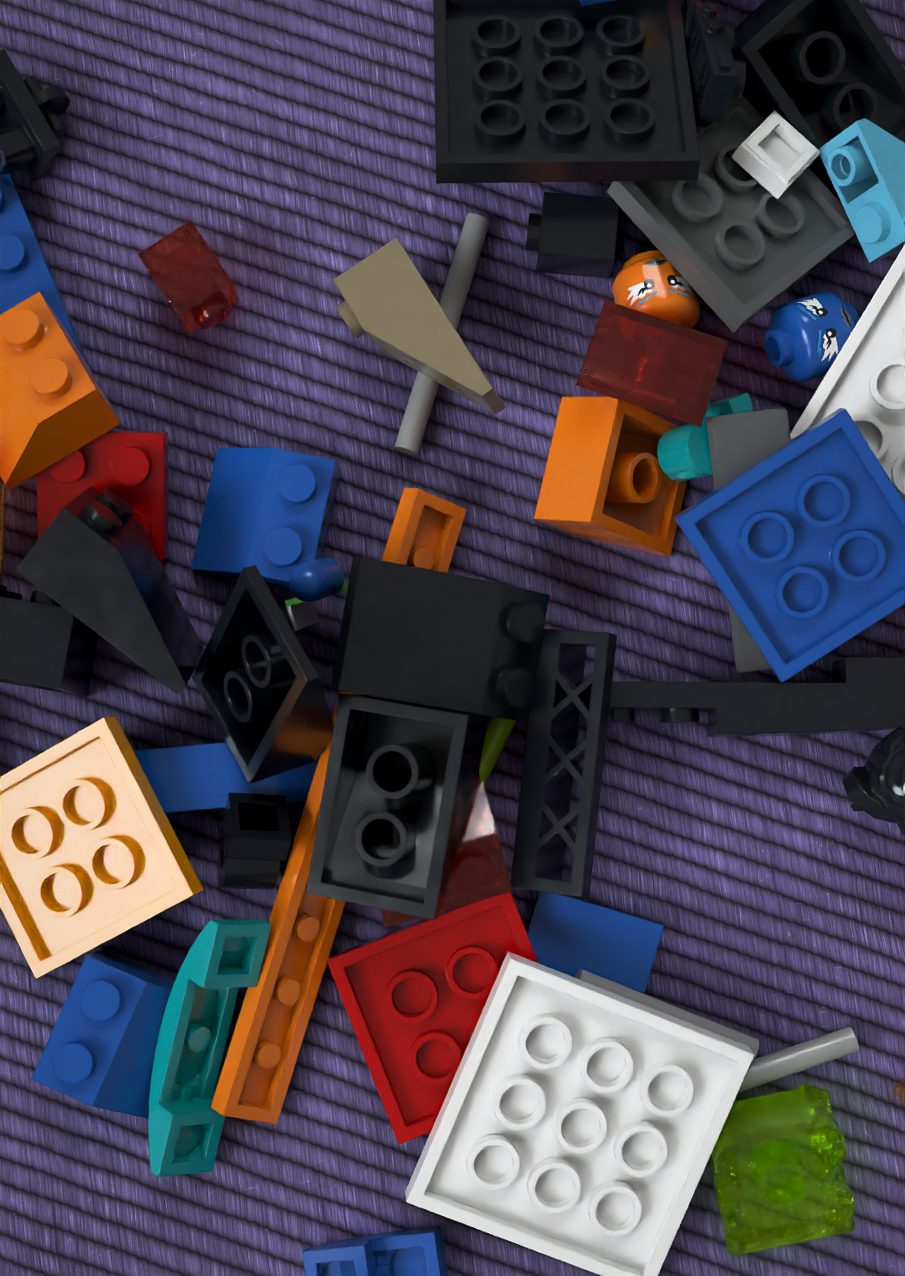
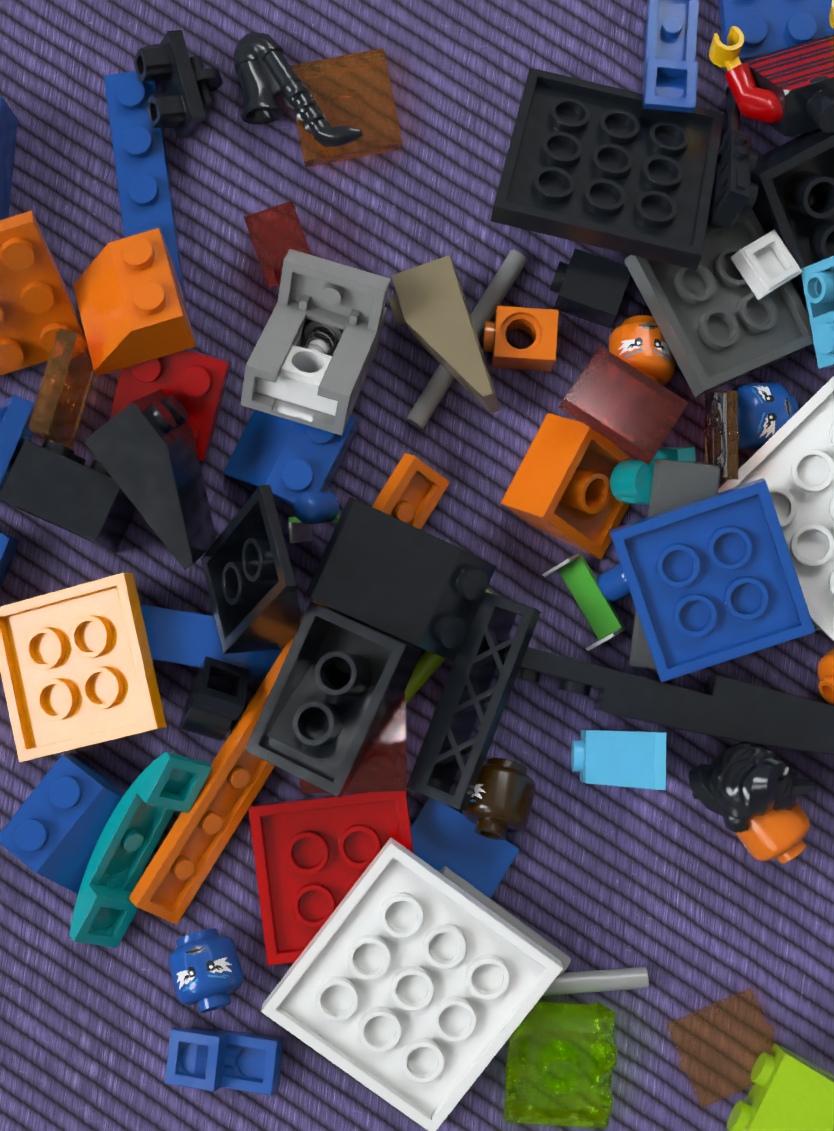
camera: 15 degrees right, 0 degrees up
(122, 77) = (266, 75): none -> black piece
(223, 94) = (351, 93): none -> clear orange tile
(265, 381) = (317, 343): none -> light grey brick
(325, 1169) = (205, 970): none -> blue head
(525, 294) = (539, 323): none -> orange brick
(626, 872) = (501, 799): none -> dark brown head
(674, 599) = (595, 594): none -> bright green piece
(759, 785) = (621, 758): none -> medium azure slope
(776, 365) = (722, 431): none -> piece

